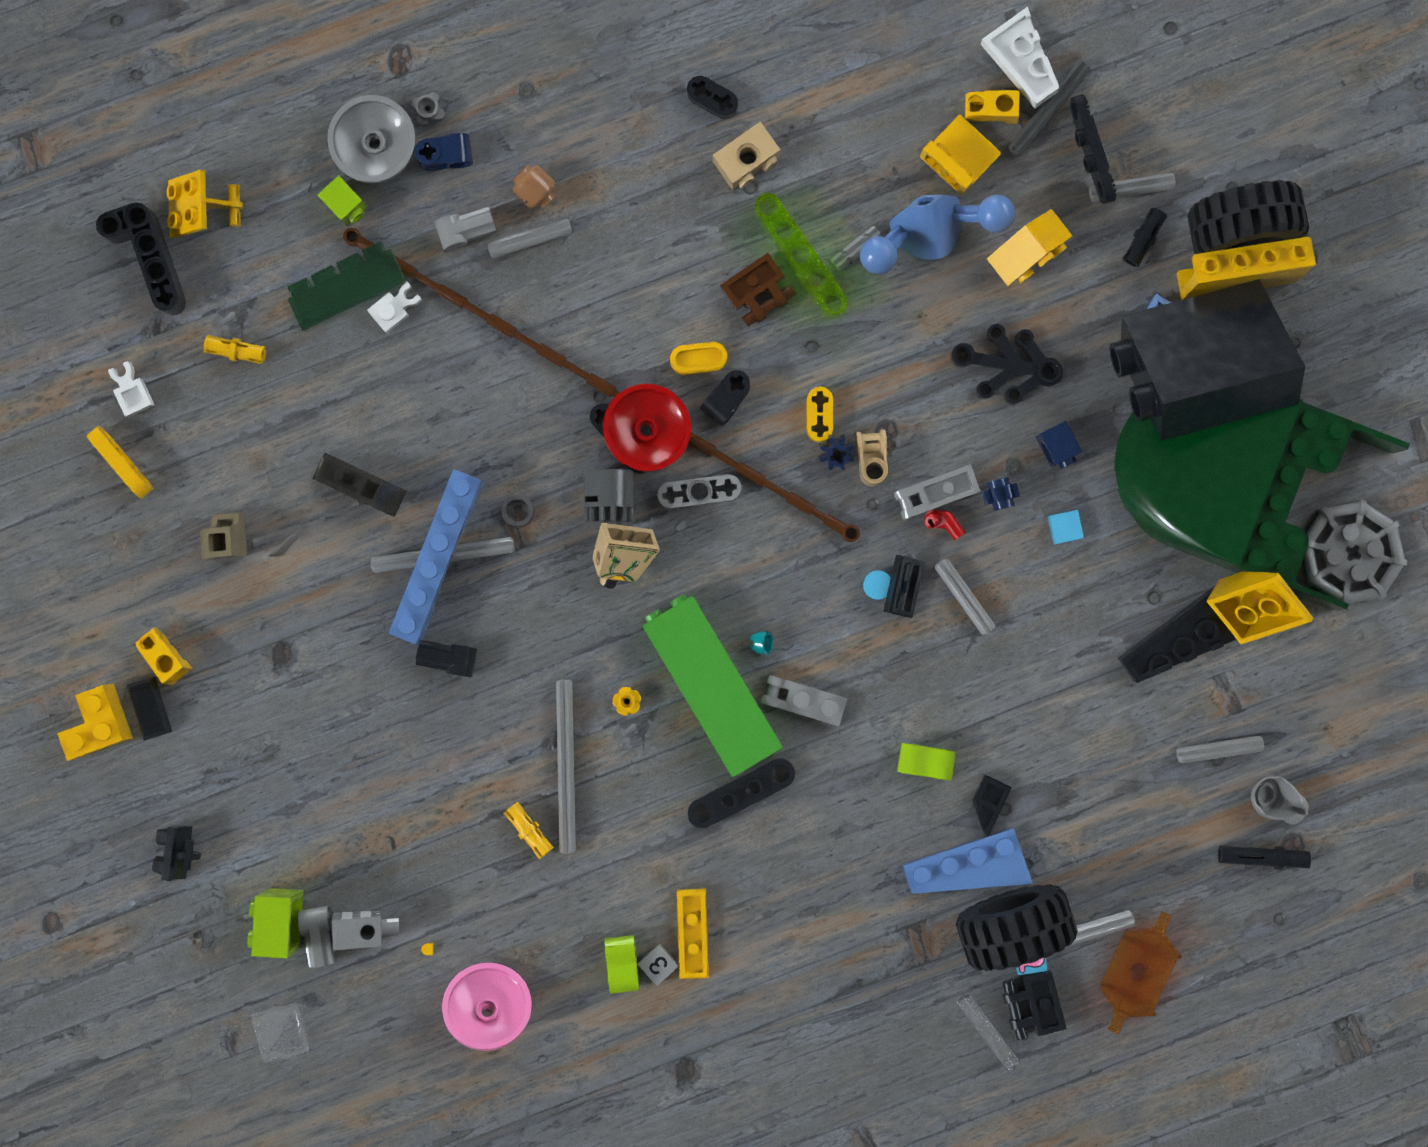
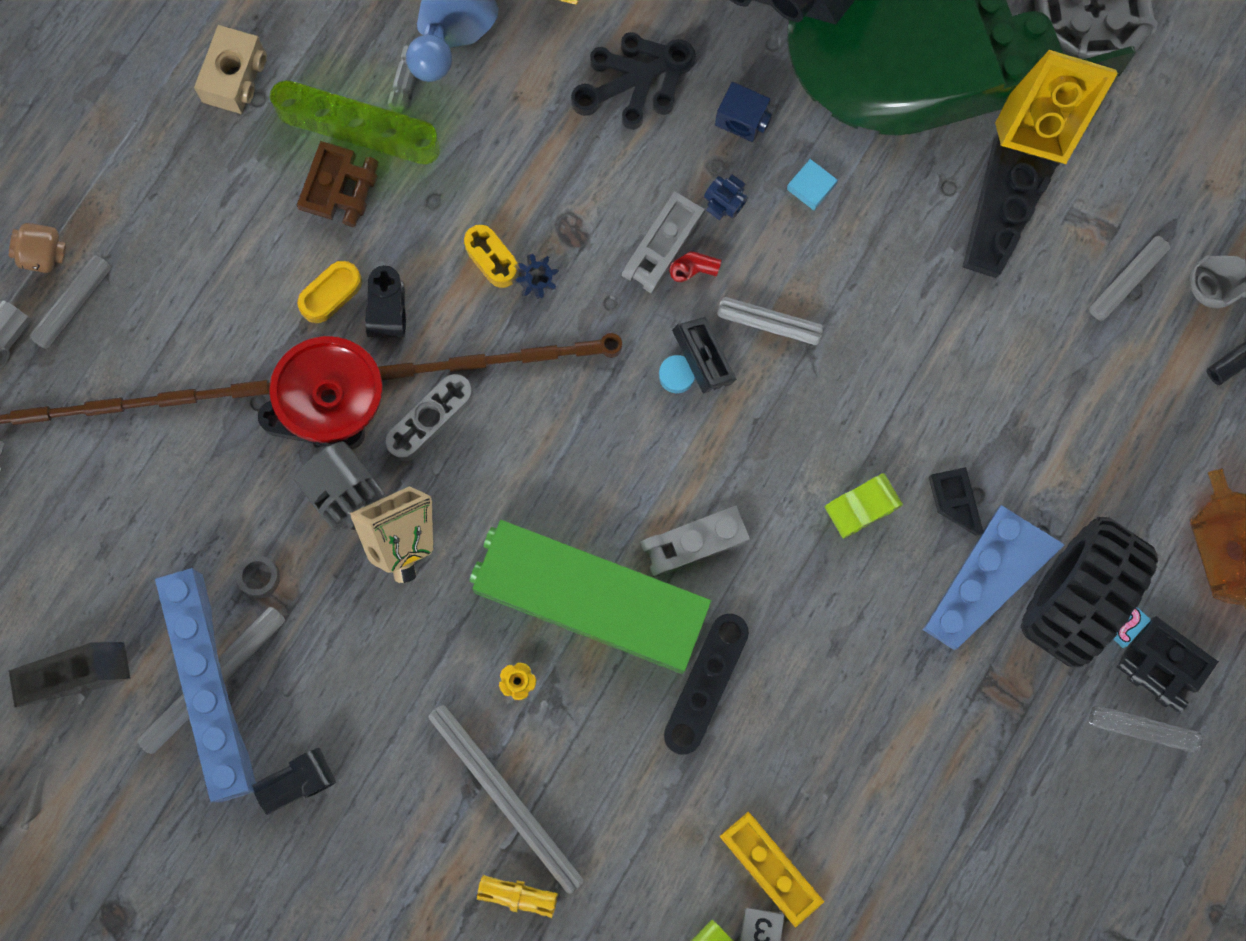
camera: 45 degrees left, 10 degrees down
(708, 103) = (155, 42): black beam -> none
(762, 642) = (608, 516): teal hinge -> none
(872, 454) = (569, 252): tan piece -> none
(1104, 926) = (1171, 527): light grey axle -> none

